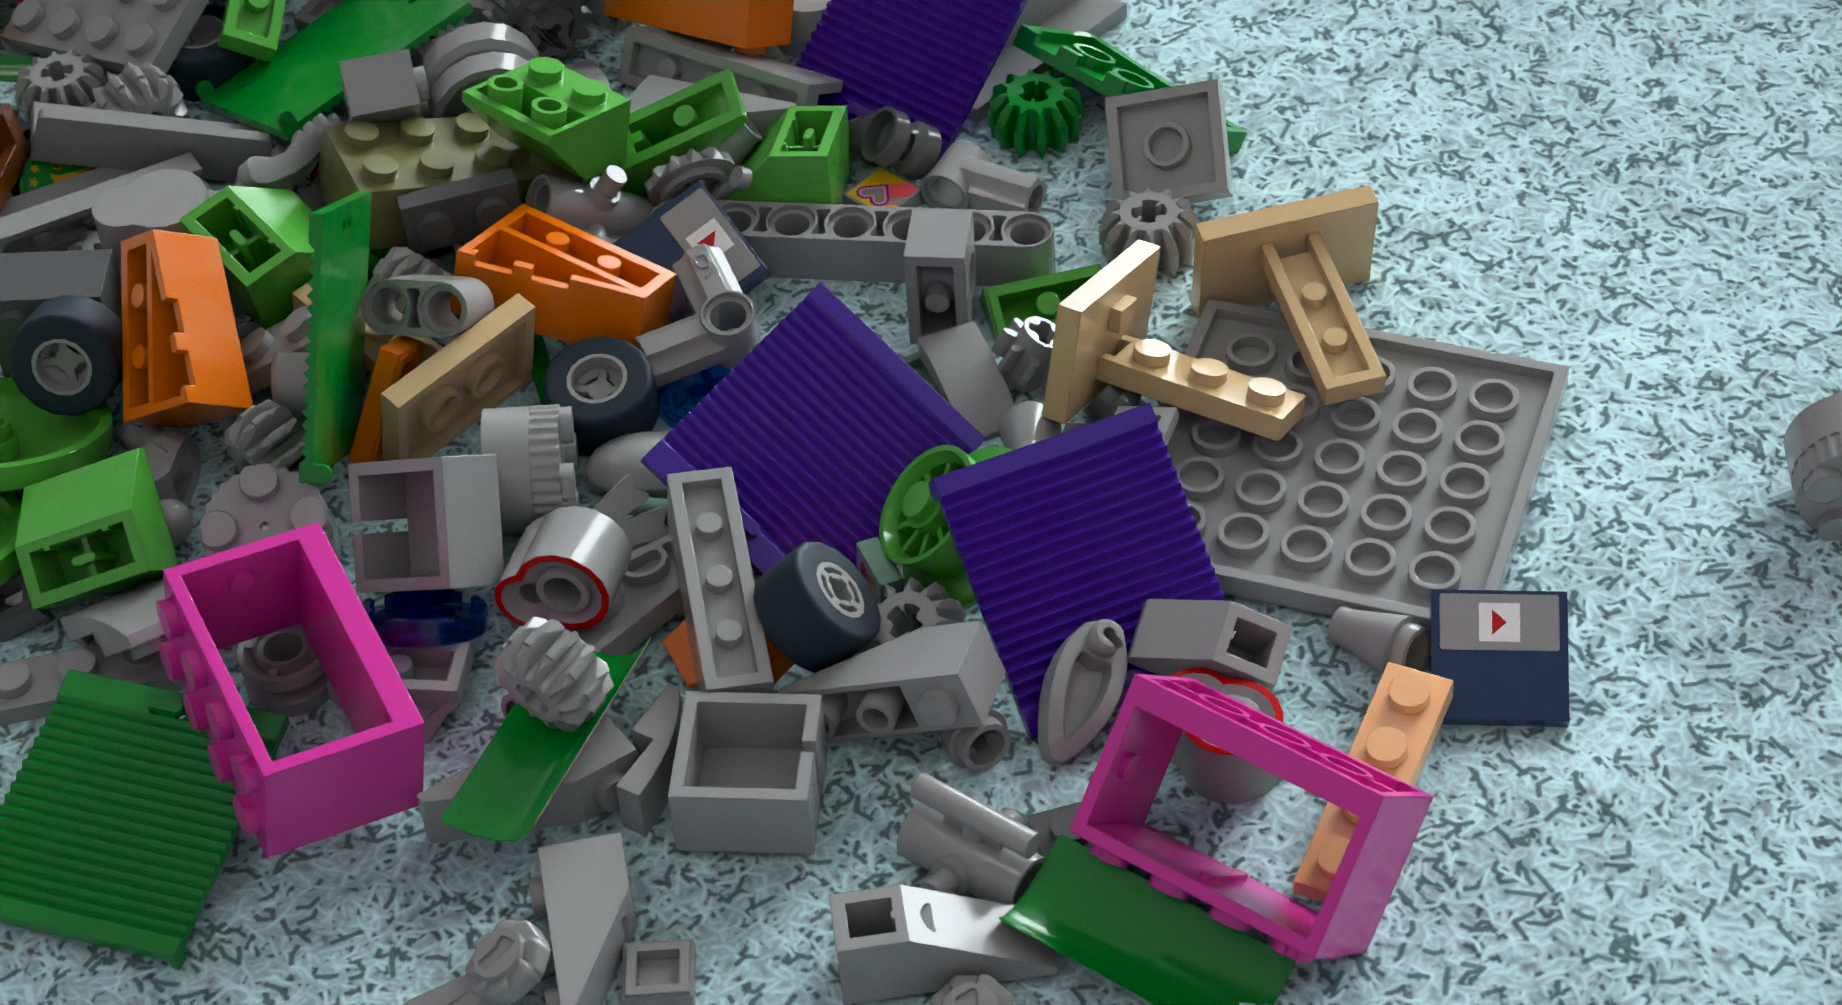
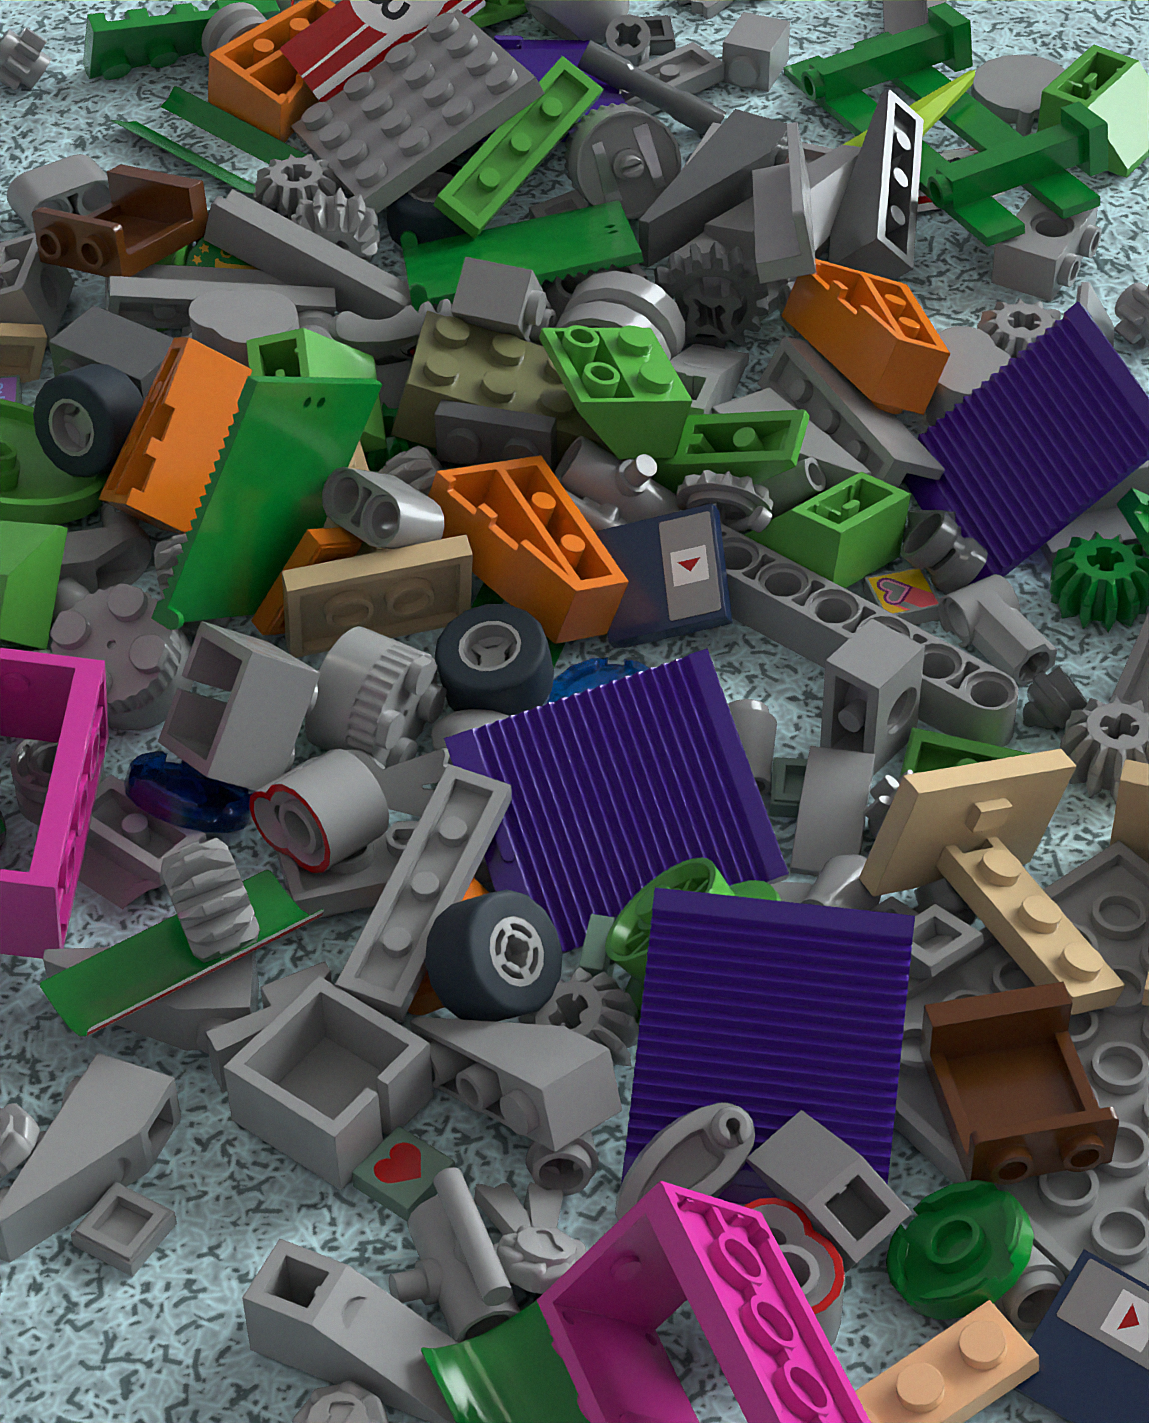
camera: 30 degrees right, 0 degrees up
(701, 338) = (611, 653): light grey piece -> none
(854, 815) = (401, 1172): none -> sand green tile
(1034, 804) = (531, 1245): none -> light grey piece
(1073, 219) = (1052, 700): none -> dark grey plate
(1284, 507) = (1014, 1085): none -> reddish brown panel
(1336, 643) = (960, 1250): none -> green tile

